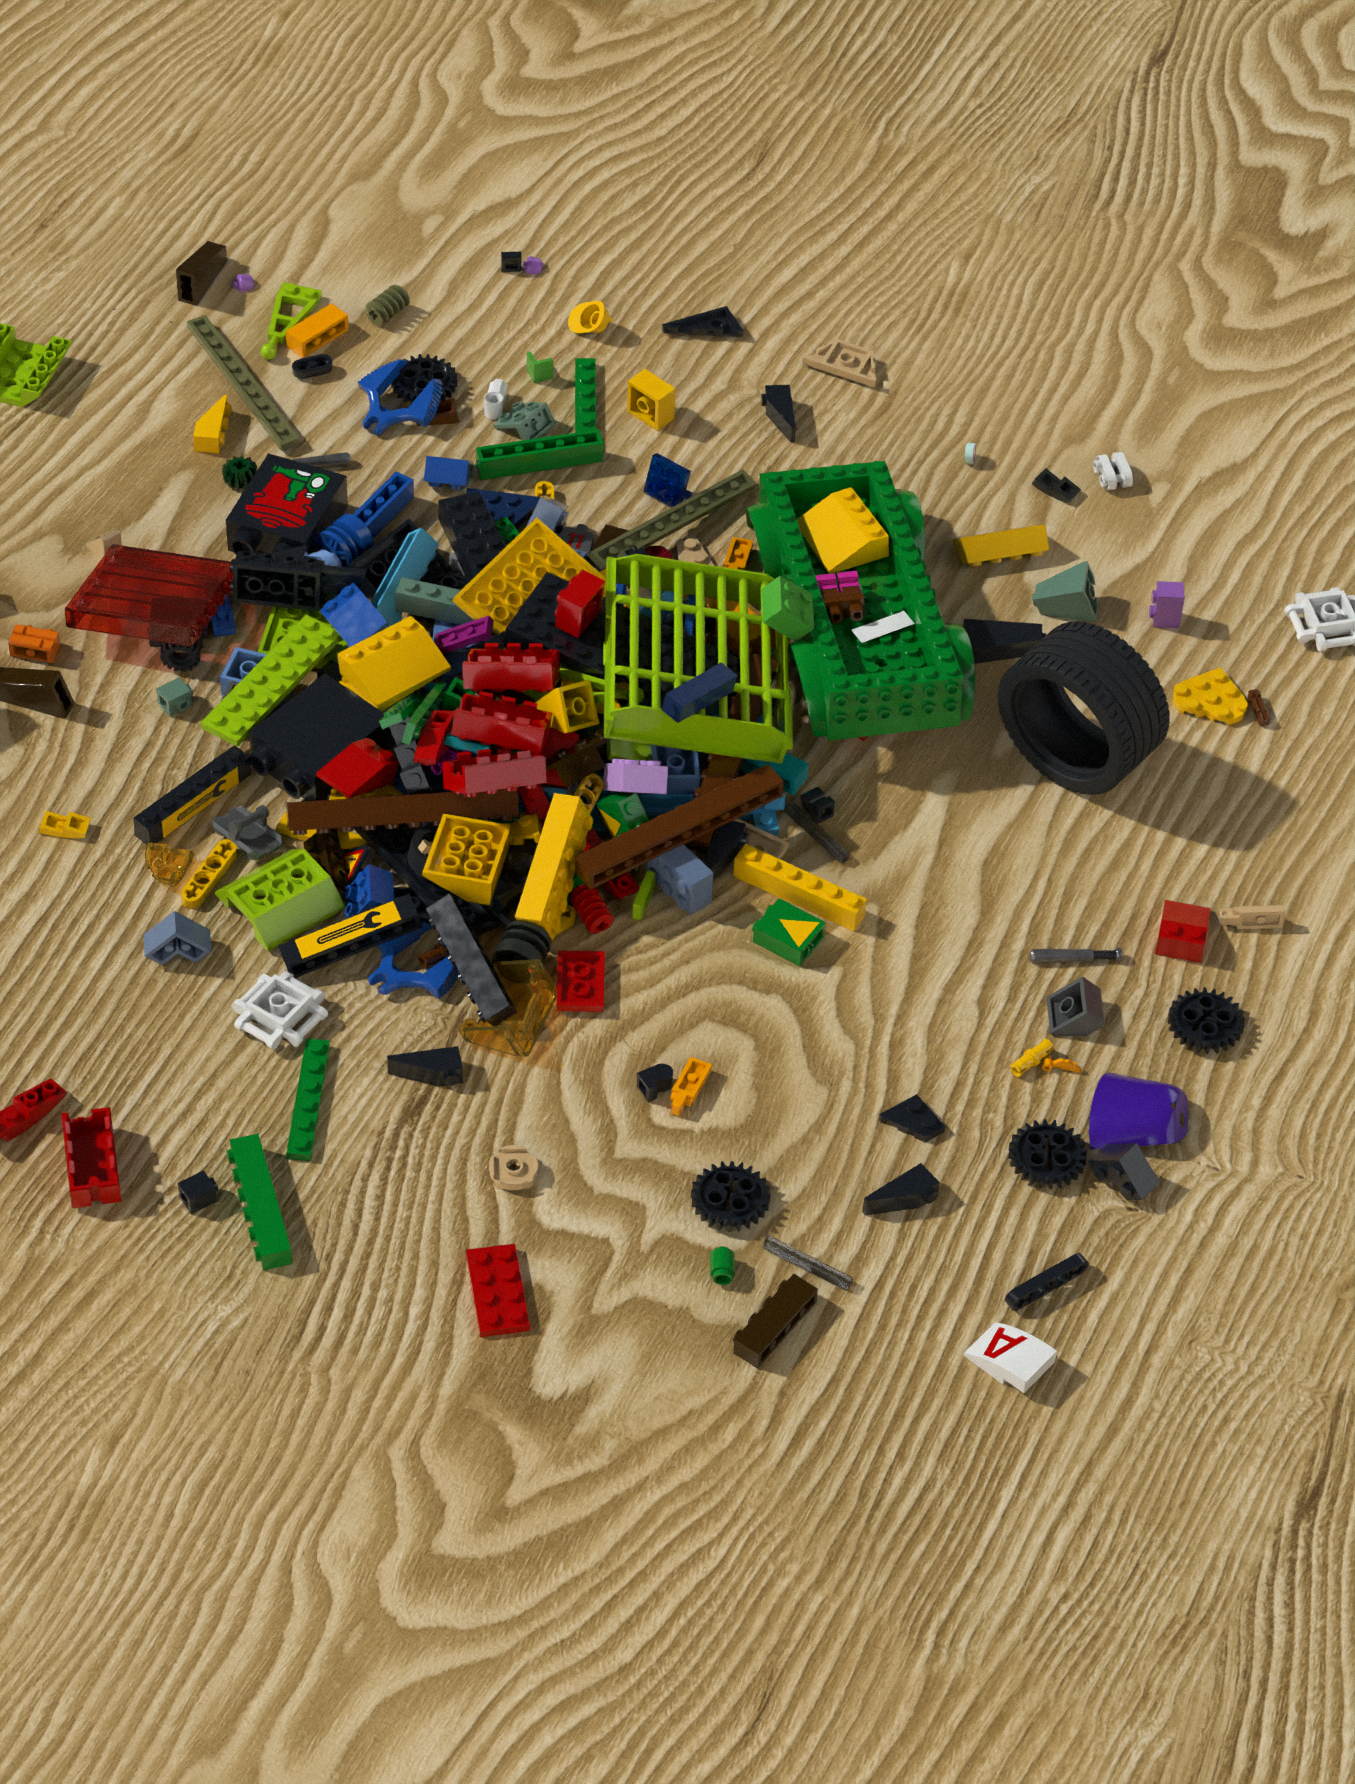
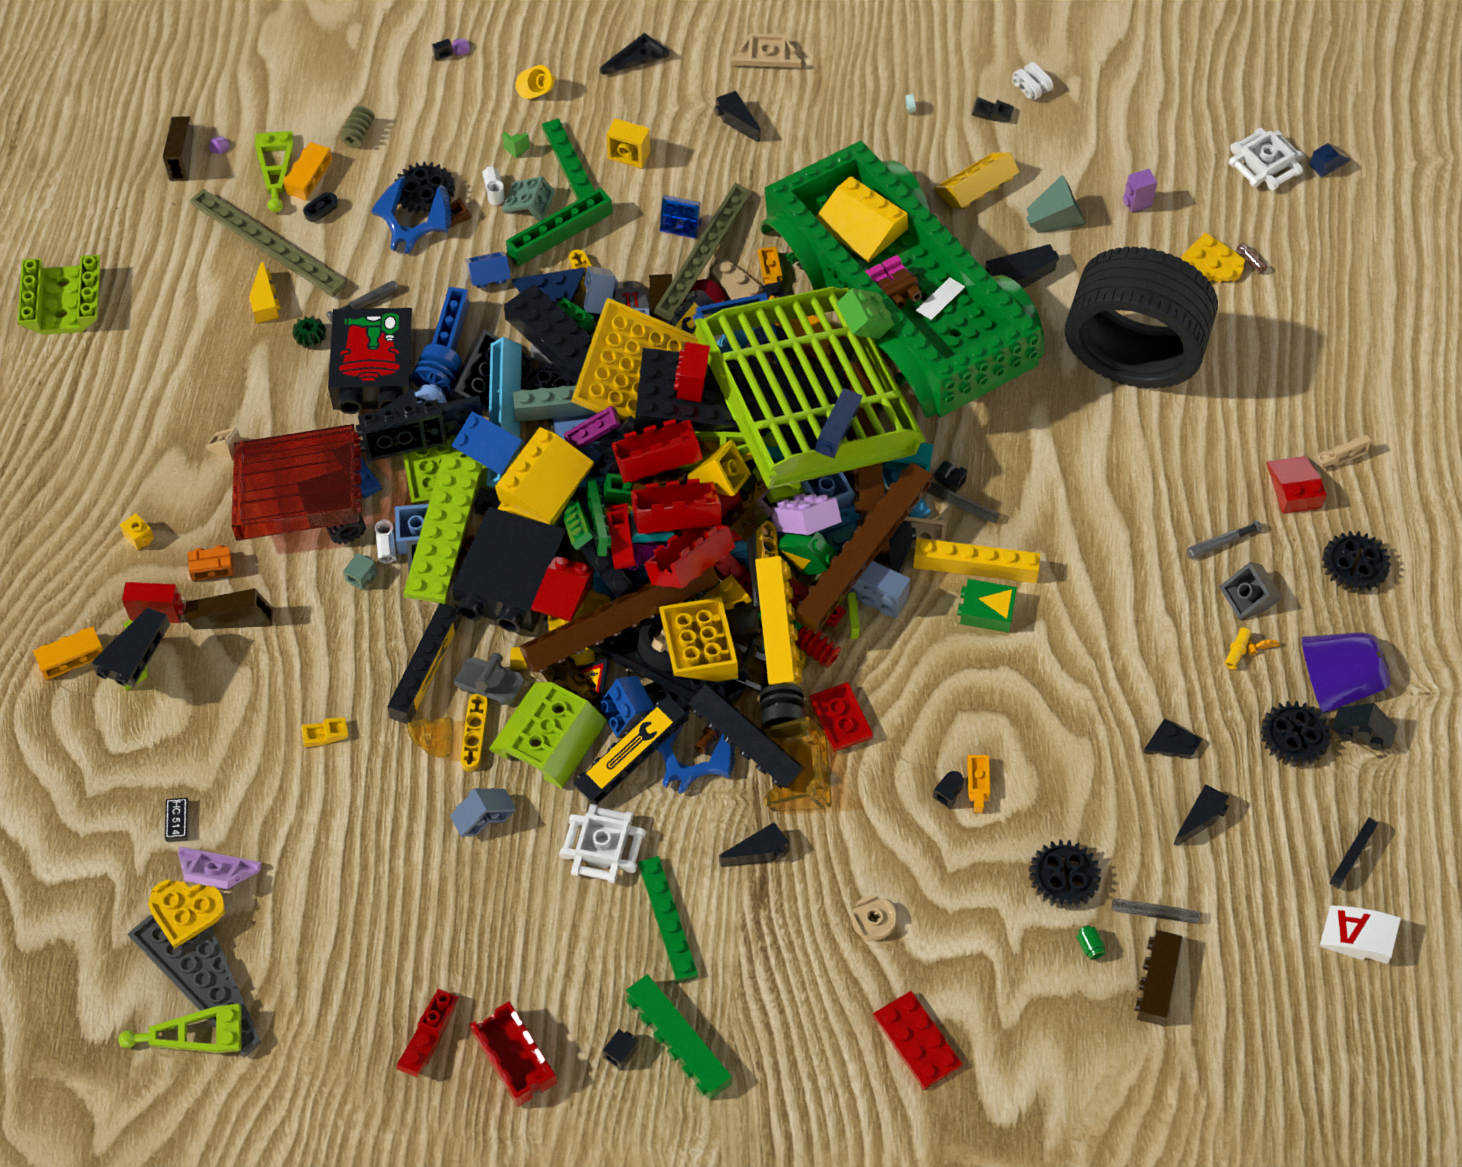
camera: 20 degrees left, 10 degrees up
(210, 683) = (385, 542): none -> white piece

